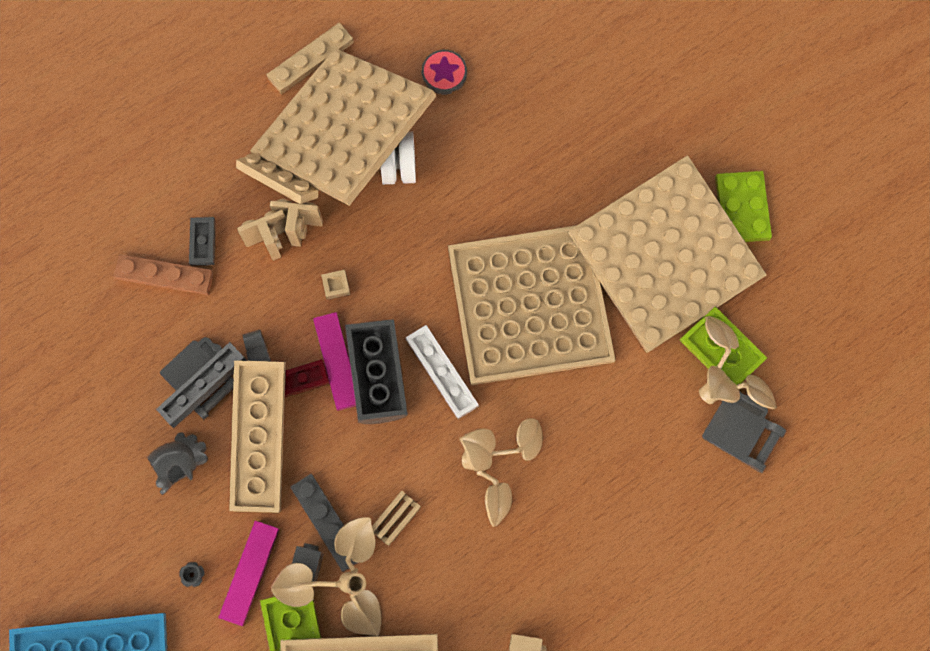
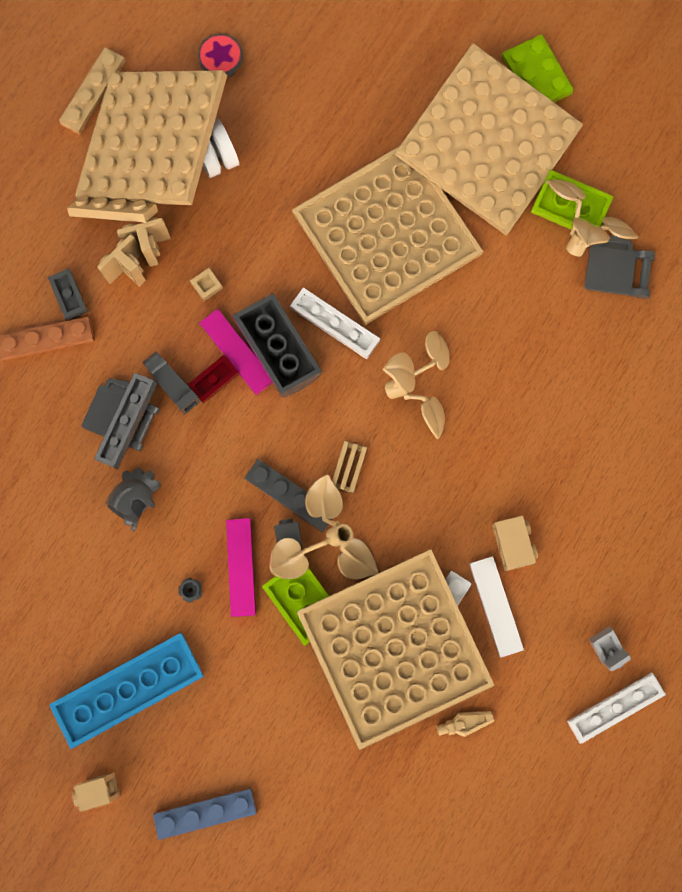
camera: 20 degrees left, 5 degrees up
(257, 436) = (196, 444): tan plate -> none

